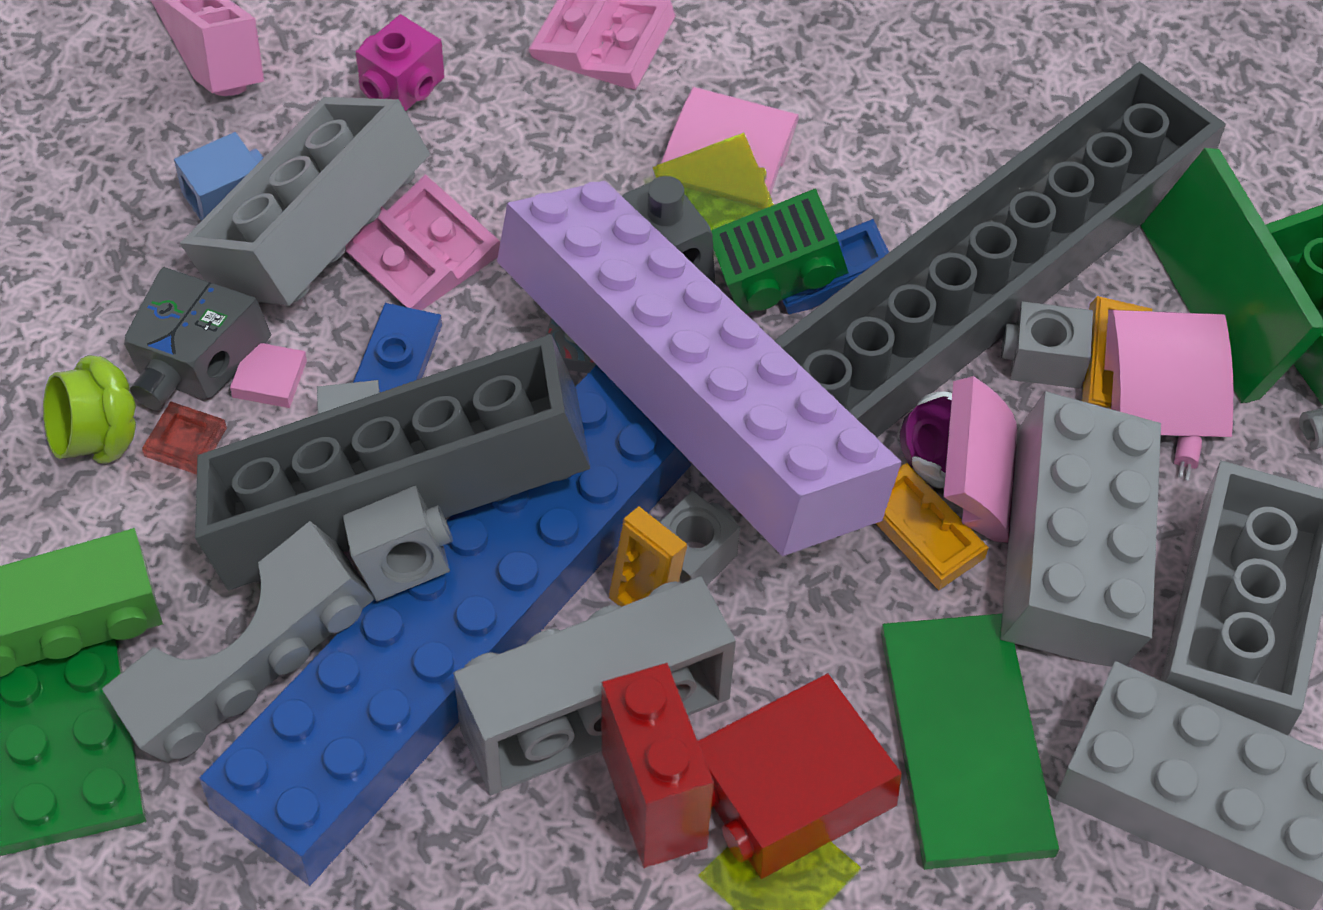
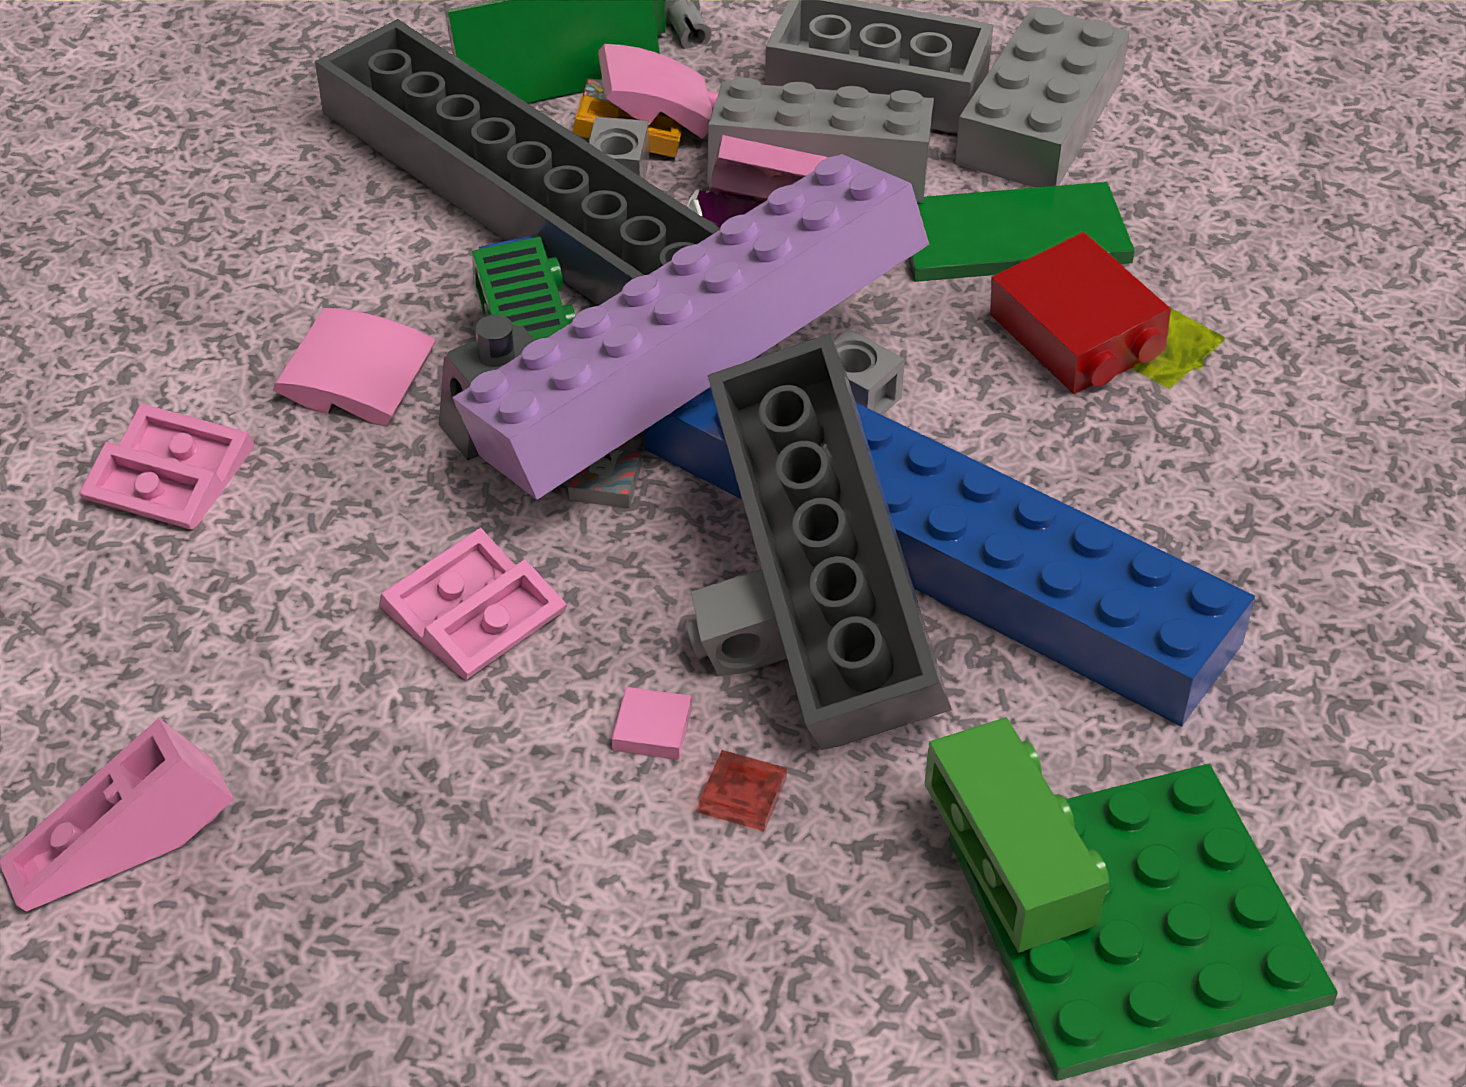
camera: 90 degrees left, 10 degrees down
(89, 411) = (728, 844): lime piece -> none
(190, 337) = (620, 778): dark grey torso -> none
(214, 171) = (377, 778): medium blue brick -> none
(304, 598) = (993, 598): light grey arch -> none
(307, 199) = (439, 665): light grey brick -> none
(398, 542) = (930, 517): light grey brick -> none
(399, 346) = (628, 615): blue plate -> none
(400, 62) = (215, 617): dark pink brick -> none
(543, 699) = (1032, 407): light grey brick -> none
(645, 558) = (904, 376): light orange plate -> none
(656, 764) = (1112, 365): red brick -> none
(721, 180) = (410, 364): clear neon green piece -> none

